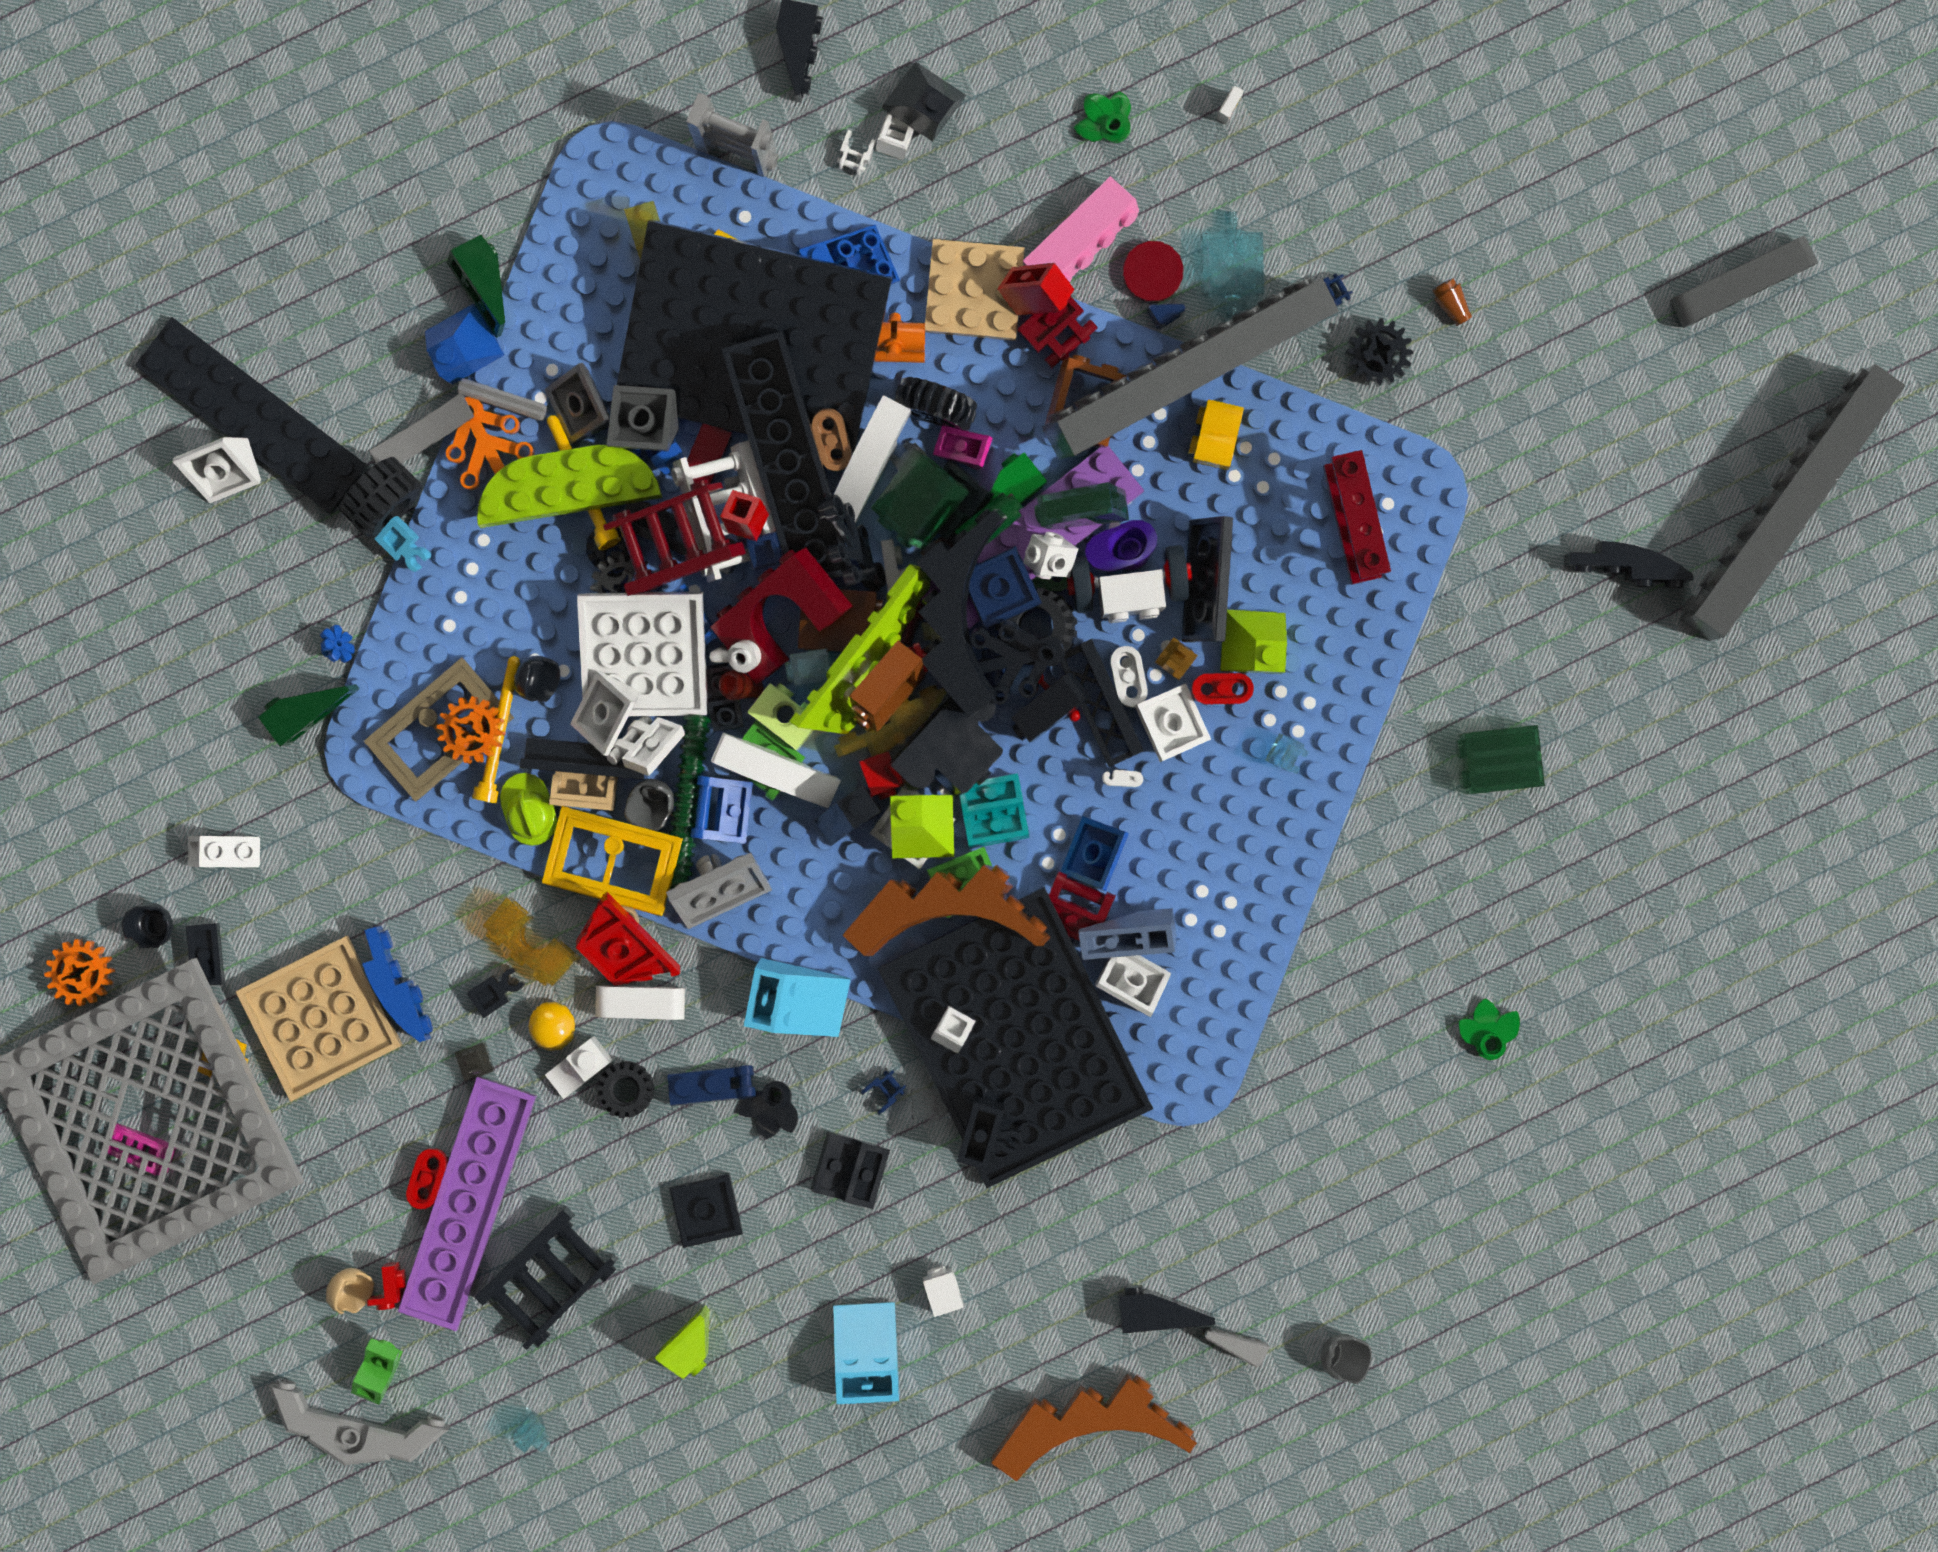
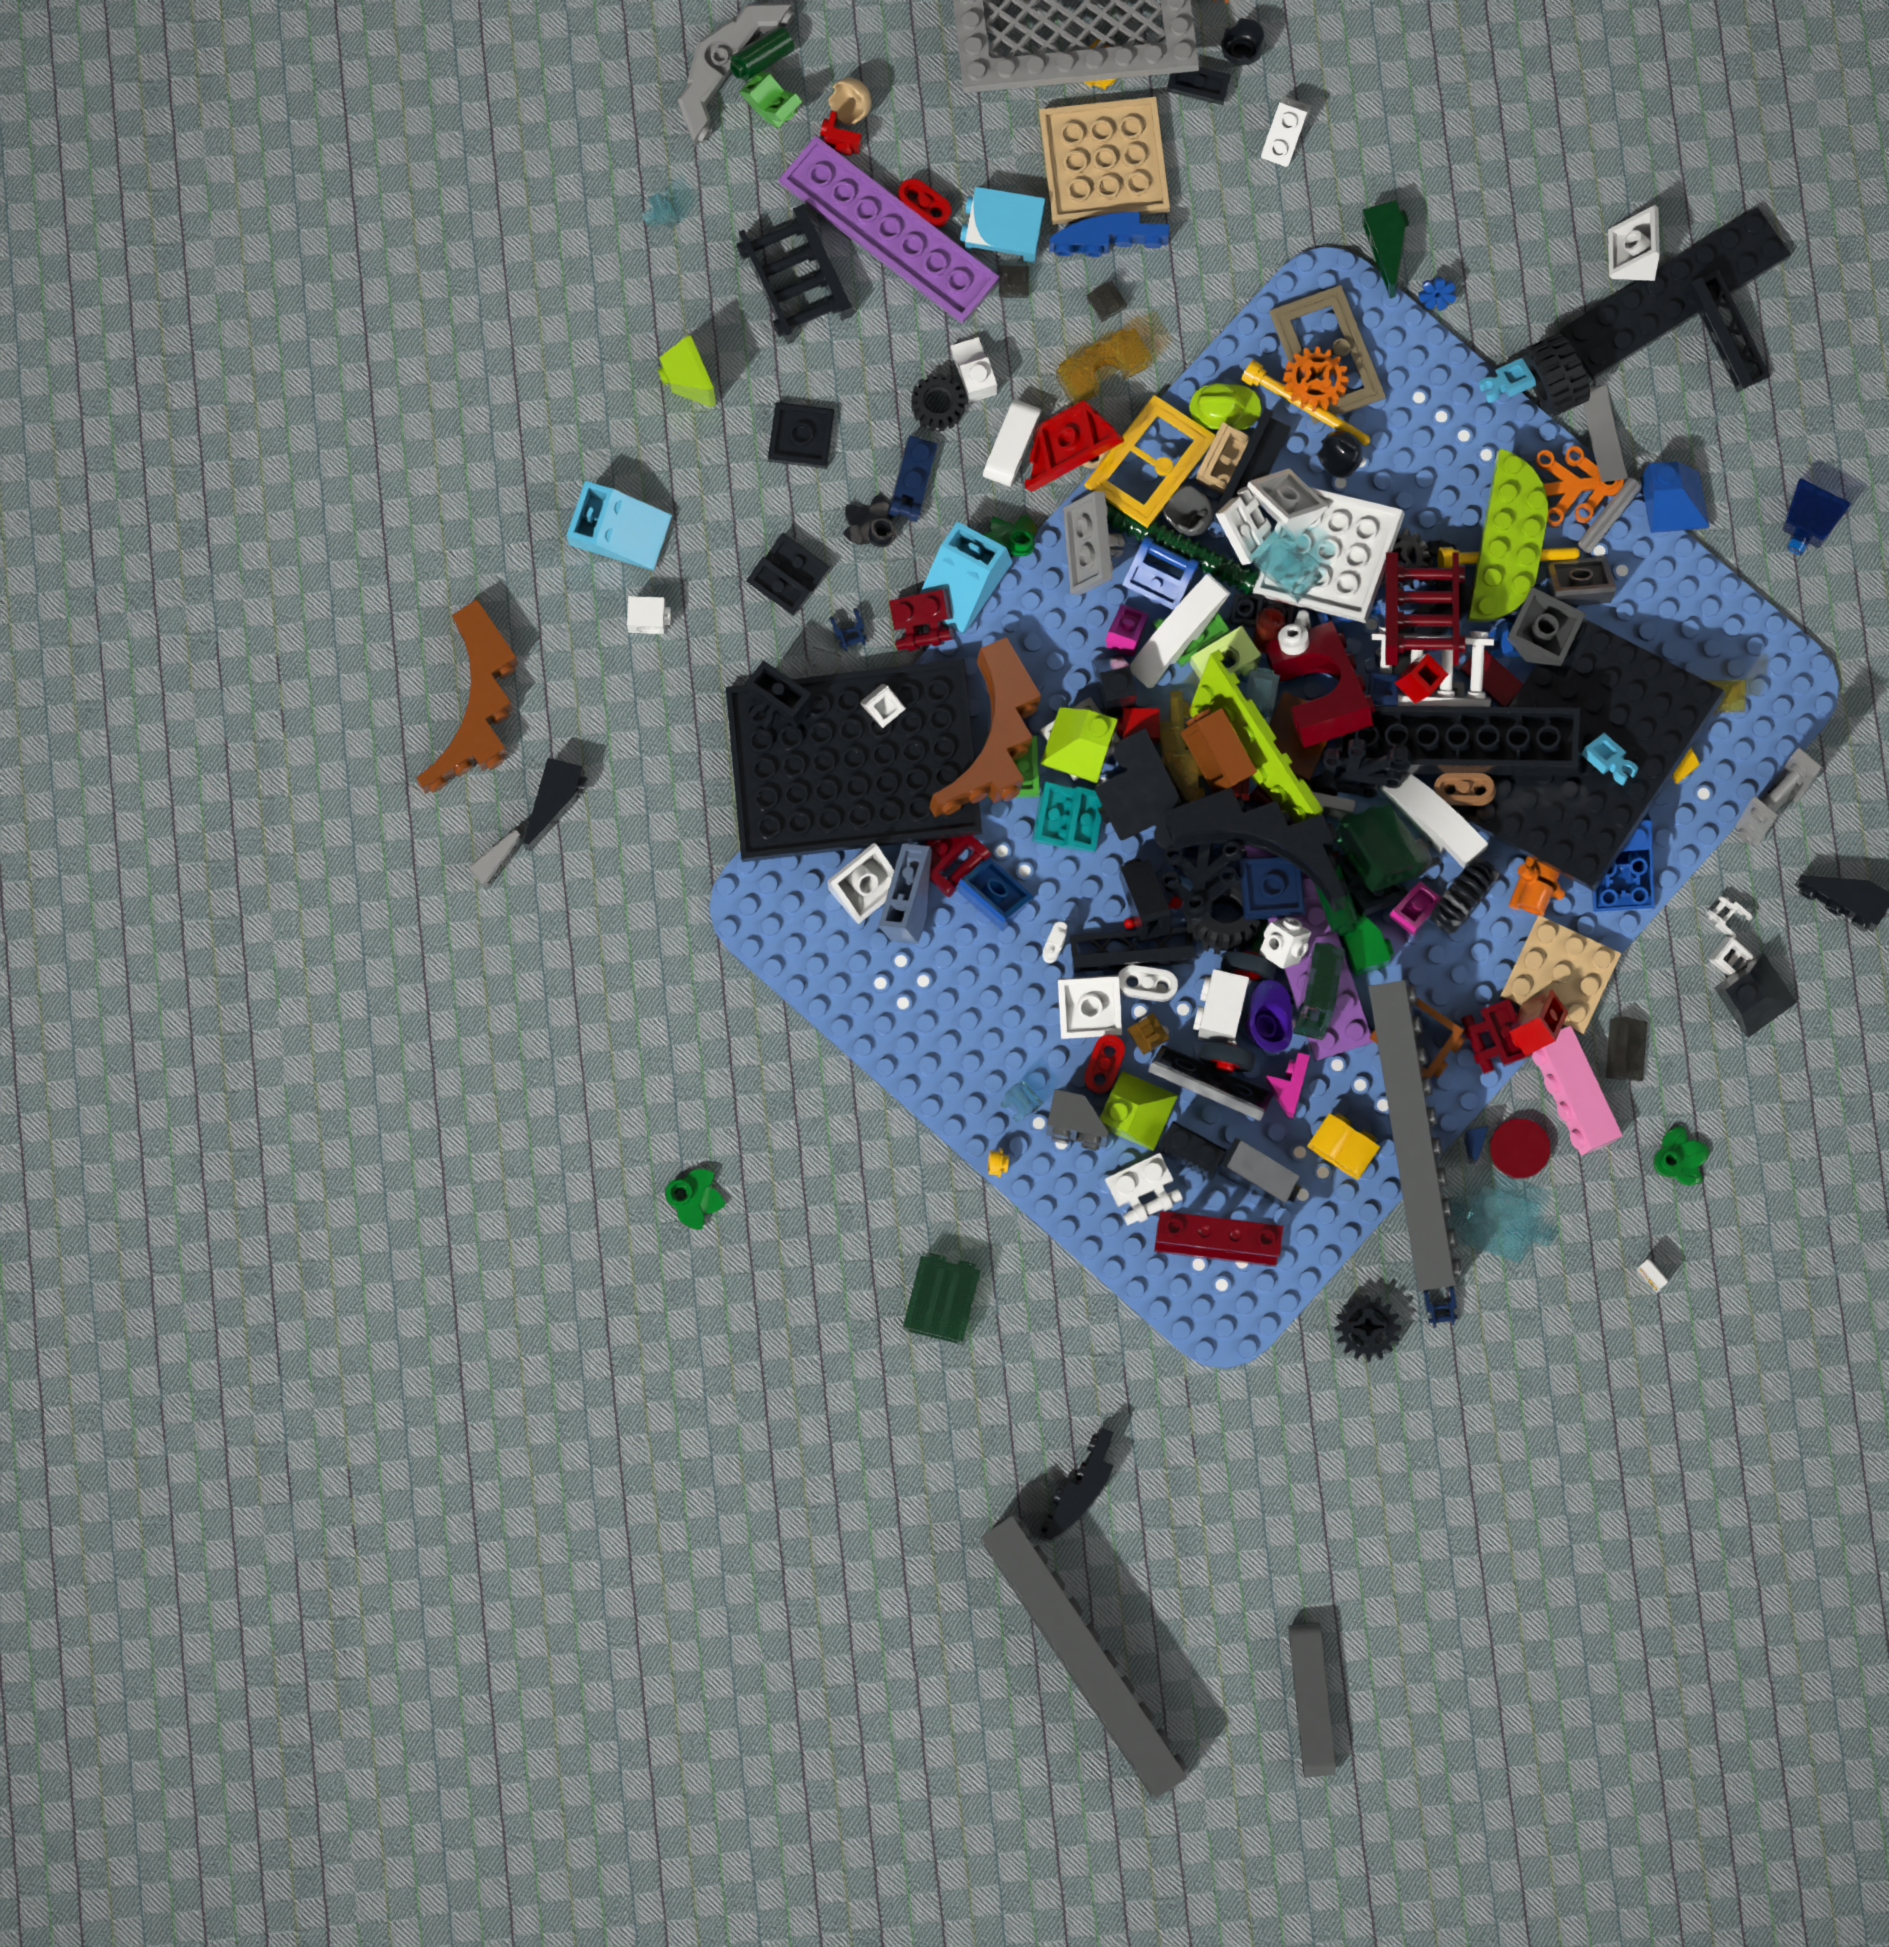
camera: 115 degrees right, 10 degrees down
(278, 355) = (1721, 334): none -> black fence
(333, 1397) = (761, 53): none -> dark green brick
(420, 1093) = (1003, 222): none -> medium azure panel
(431, 206) = (1812, 516): none -> clear blue torso
(461, 963) = (1106, 301): none -> clear smoke tile
(478, 272) = (1736, 534): dark green slope -> none
(492, 994) = (1069, 316): black plate -> none
(552, 1026) = (1020, 359): yellow hair -> none
(673, 689) = (1286, 565): none -> clear light blue brick
(734, 972) = (1017, 537): none -> green plate
(755, 309) = (1607, 756): none -> medium azure plate
(788, 822) = (1126, 630): none -> dark pink slope
(841, 1028) = (920, 610): none -> dark red plate
(1020, 205) = (1626, 1049): none -> clear smoke slope
(1184, 503) = (1286, 1091): none -> dark pink slope
(1275, 575) = (1192, 1150): none -> black brick
(1276, 503) = (1259, 1173): none -> slope
(1291, 695) = (1075, 1120): none -> dark grey slope
(1320, 616) = (1138, 1181): none -> white plate
(1346, 1358) = (444, 952): dark grey hair -> none
(1354, 755) = (997, 1162): none -> yellow plate
(1452, 300) = (1391, 1416): dark orange cone -> none

